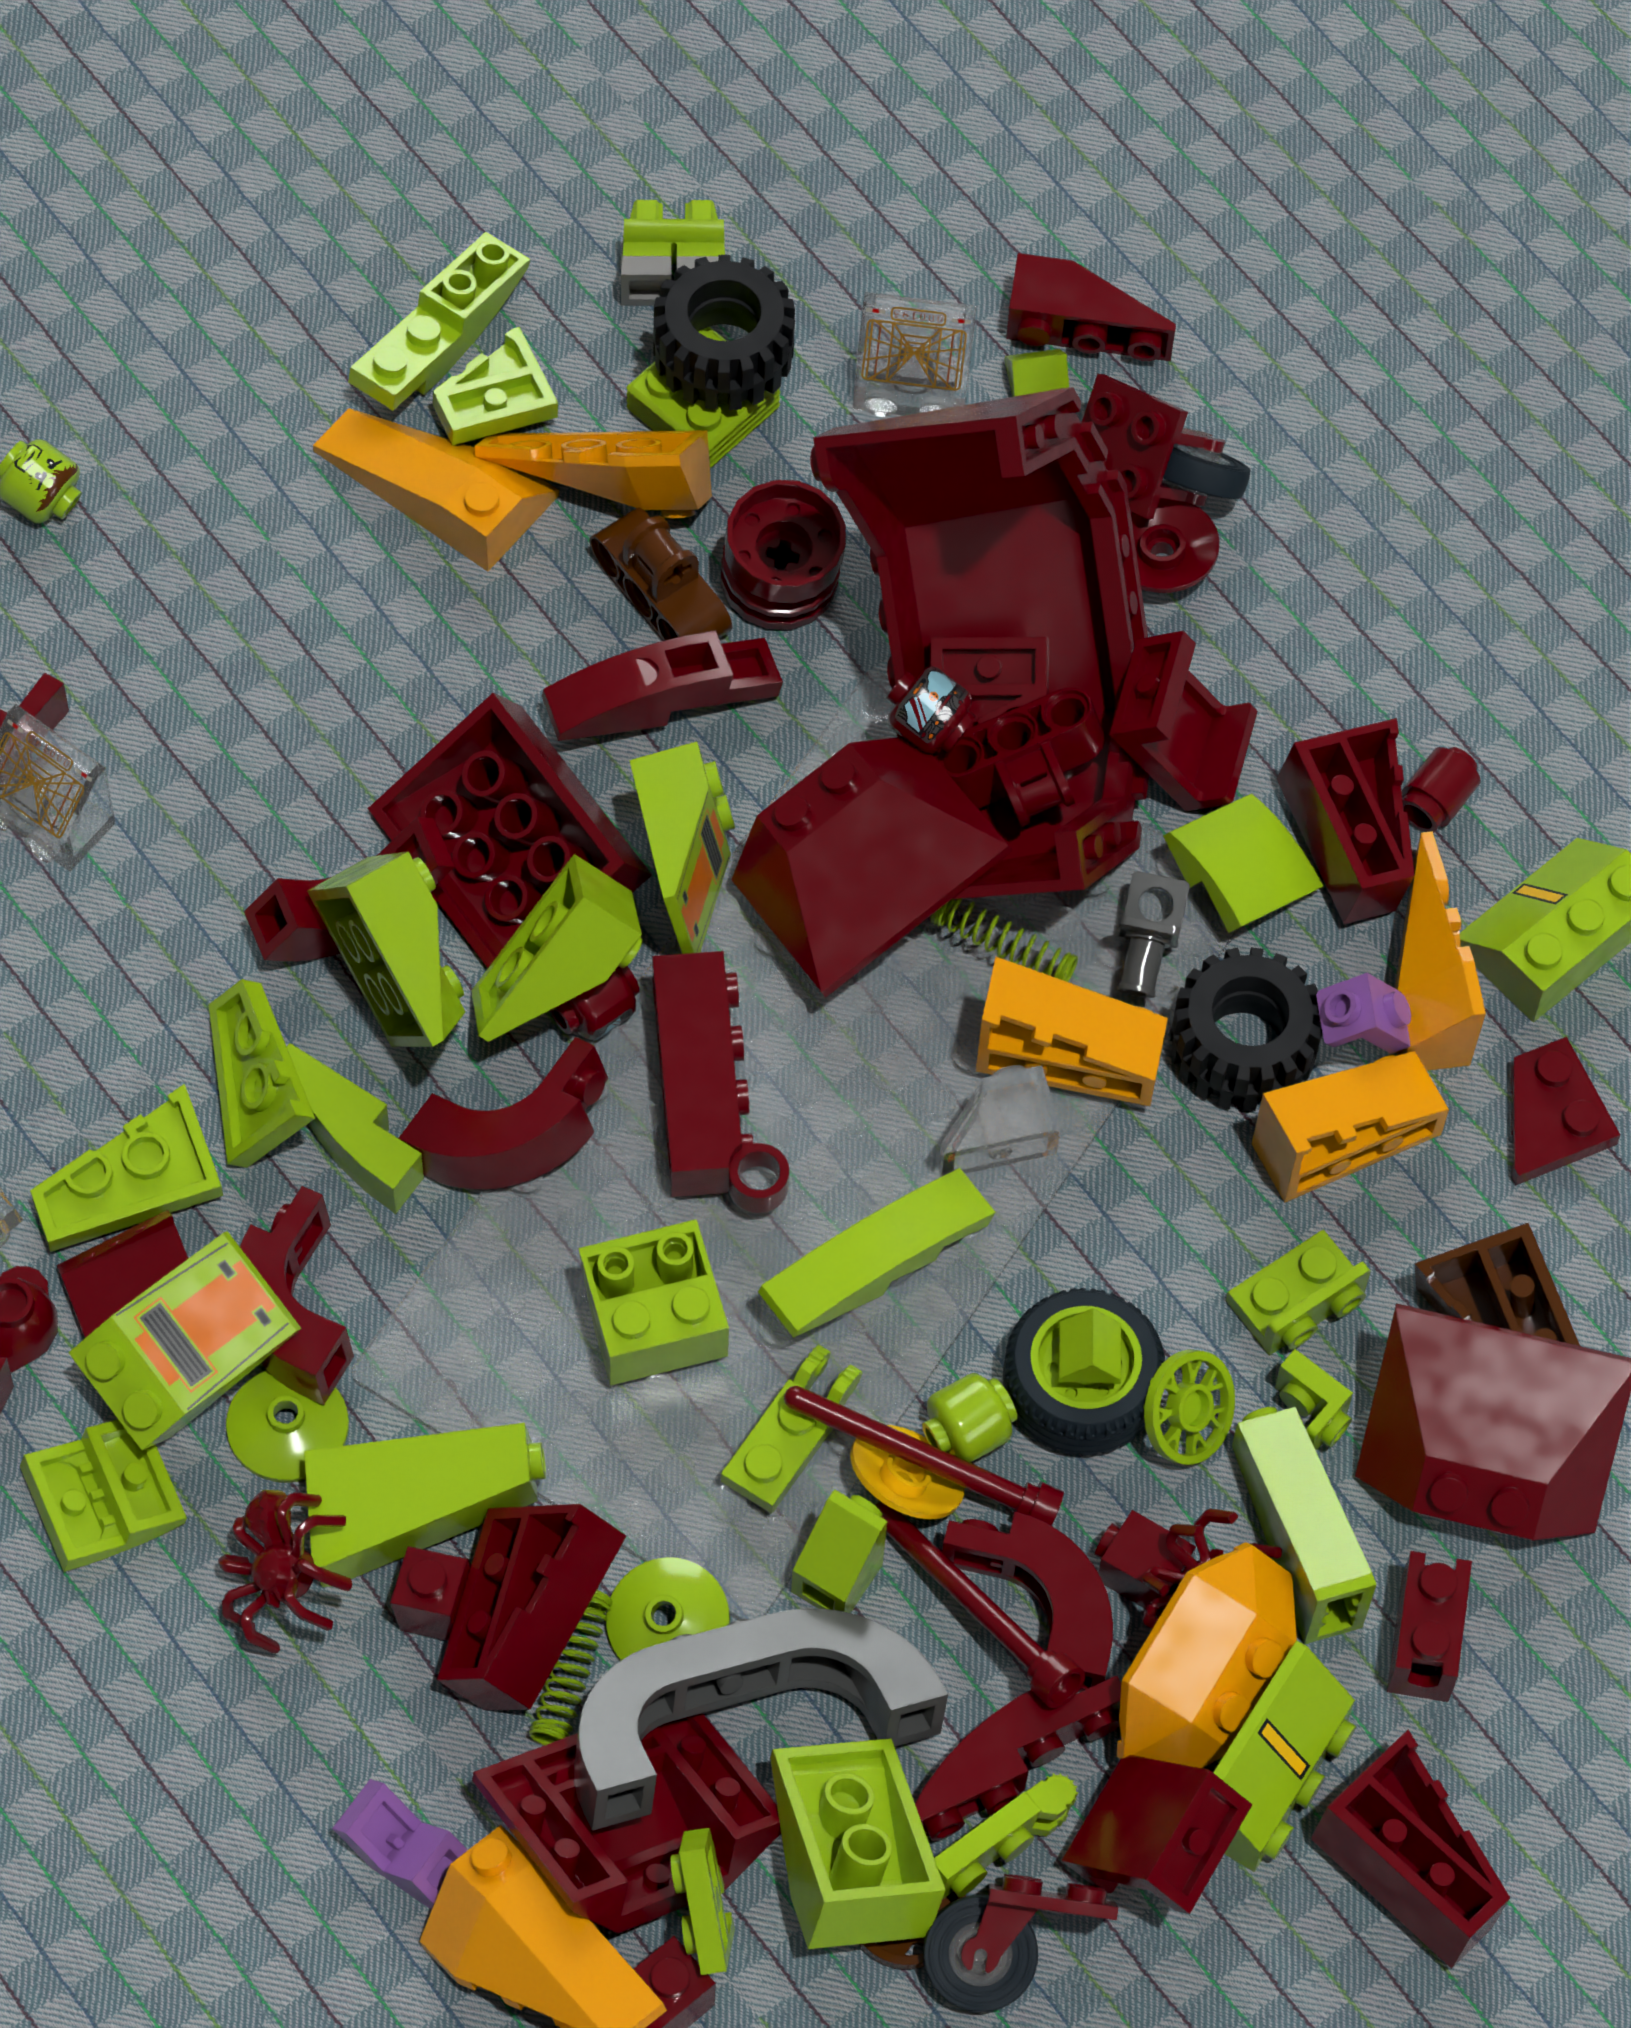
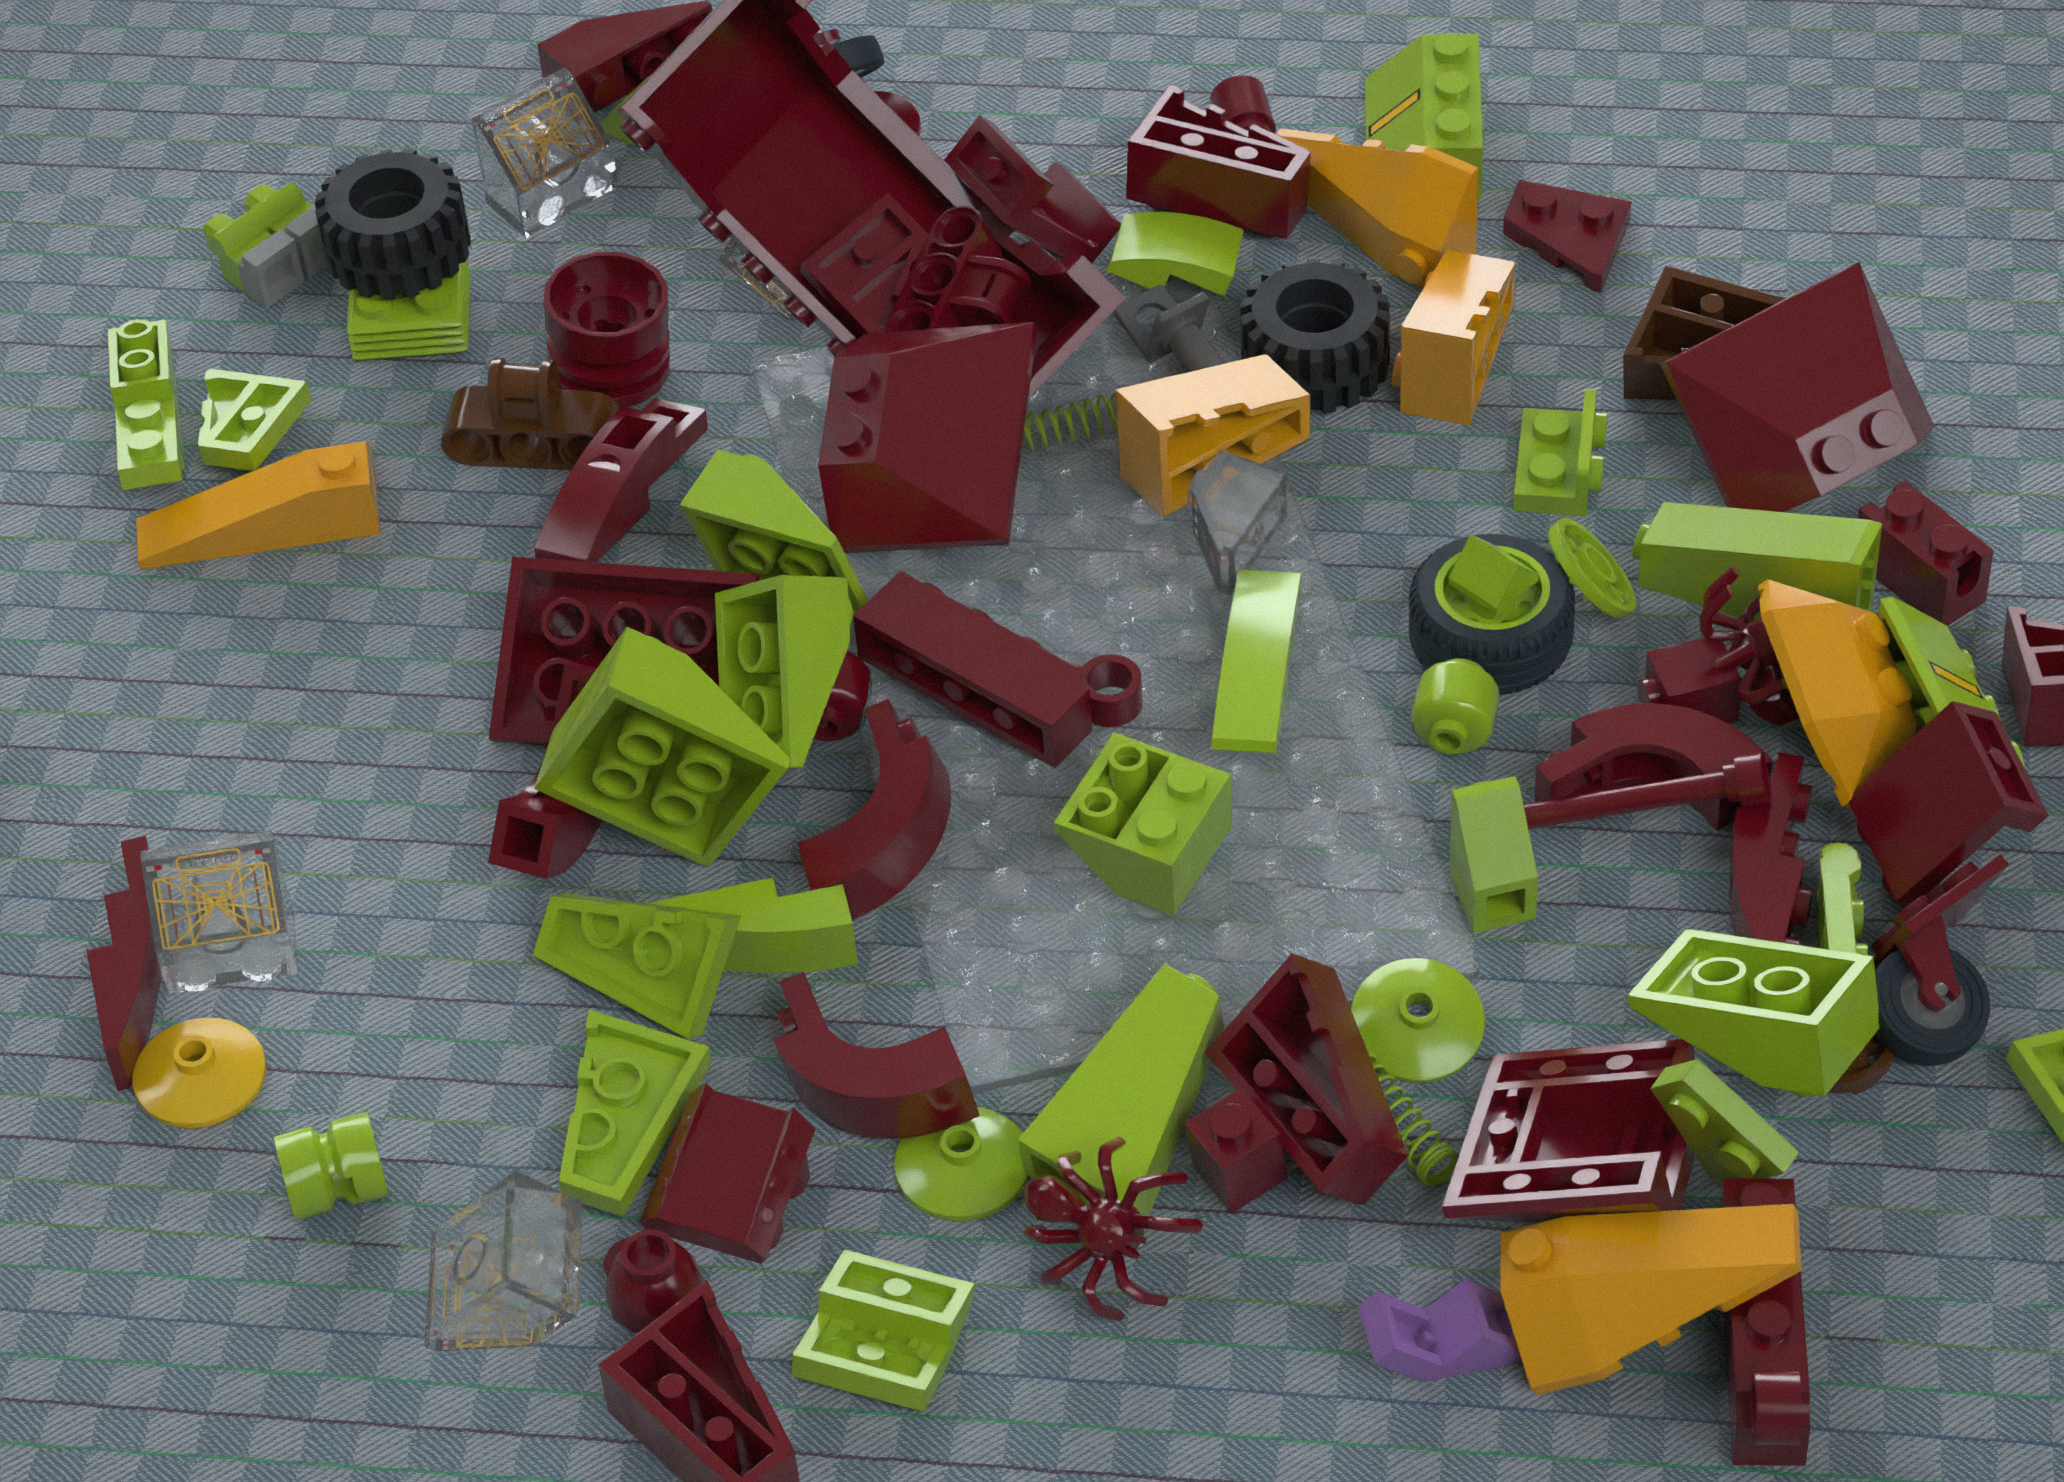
camera: 40 degrees left, 15 degrees down
(184, 1341) = (835, 1140): lime slope -> none
(633, 468) = (427, 366): light orange wedge -> none
(734, 1665) = (1609, 906): arch -> none
(785, 1439) = (1346, 825): lime hinge -> none
(903, 1484) = (1440, 775): yellow dish -> none
(930, 710) = (862, 298): head -> none
(1036, 1501) = (1553, 726): dark red piece -> none
(1315, 1394) = (1643, 490): lime bracket -> none
(1364, 1010) = (1388, 243): medium lavender bracket -> none

